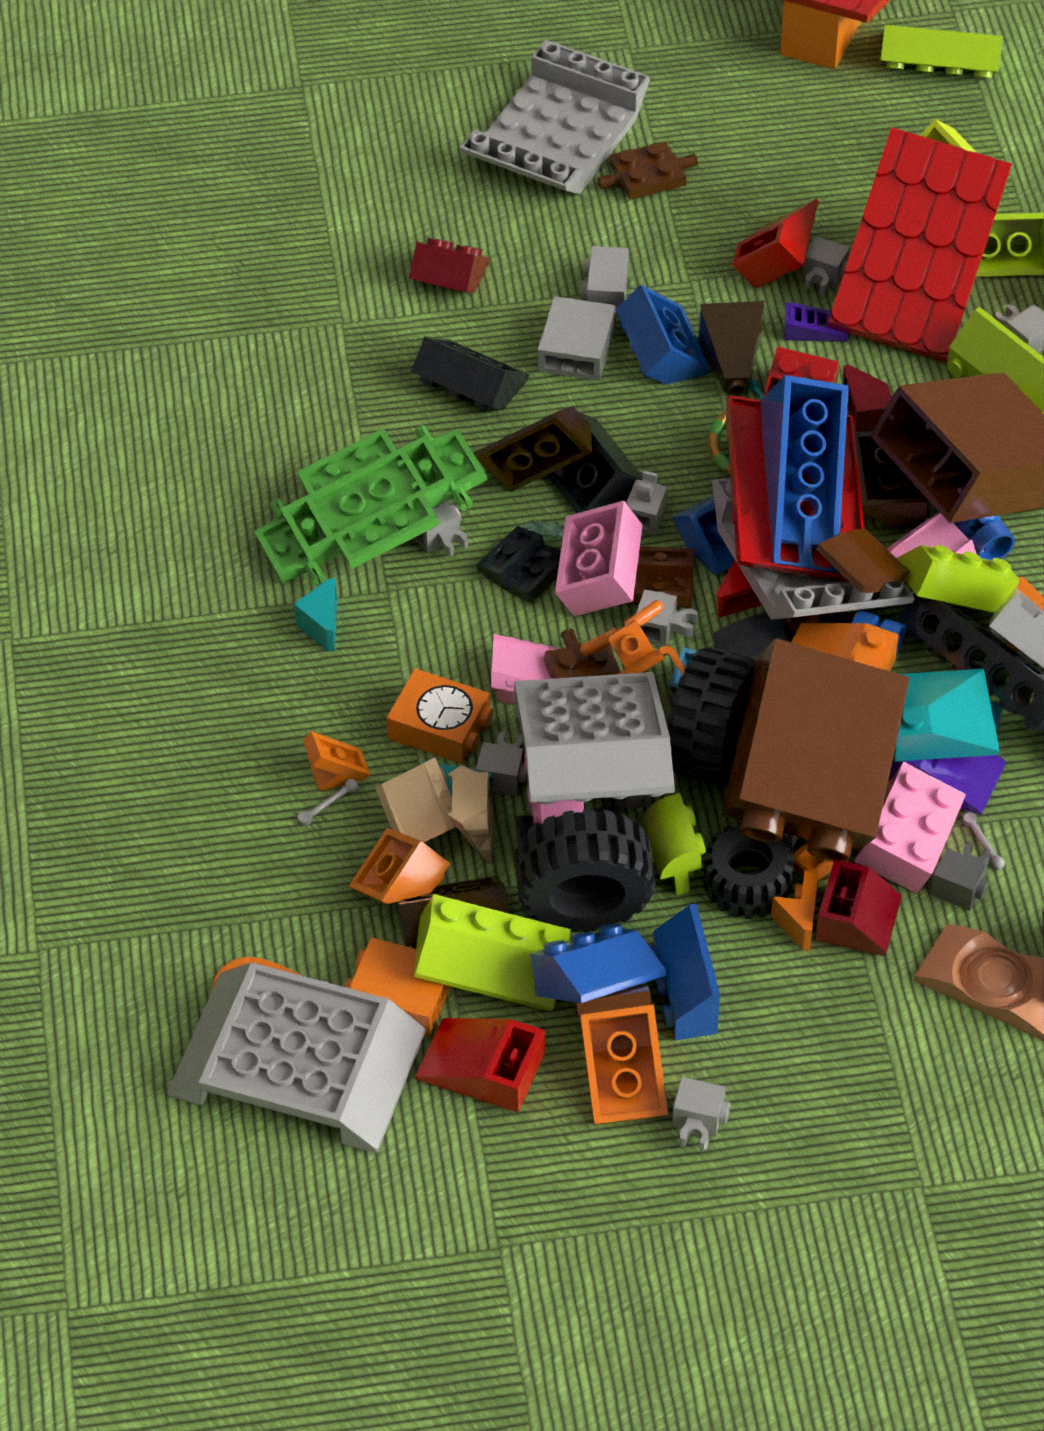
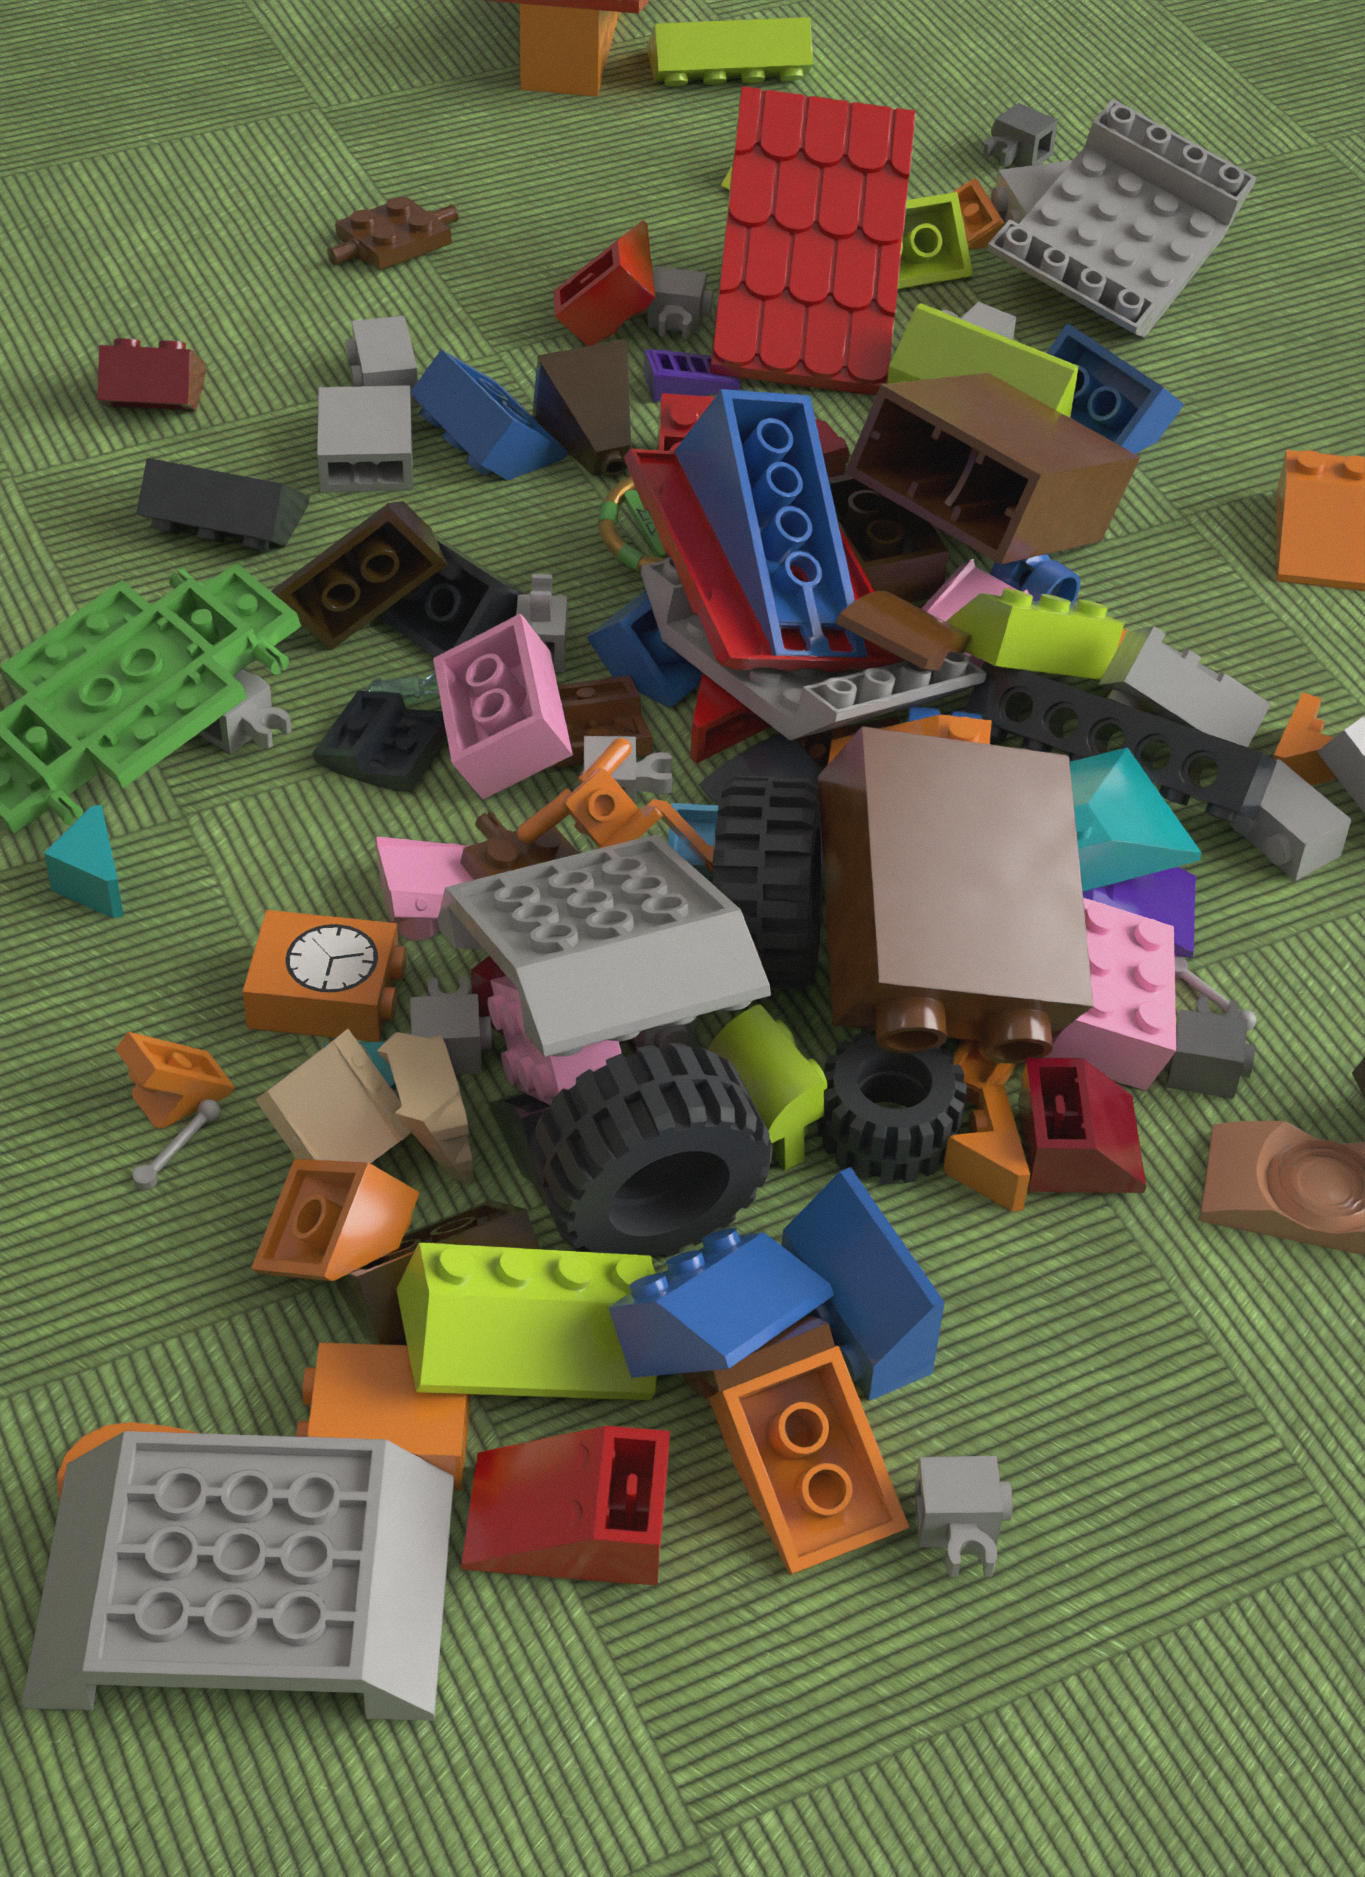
camera: 20 degrees left, 5 degrees down
(562, 118) = (256, 187): light grey slope -> none

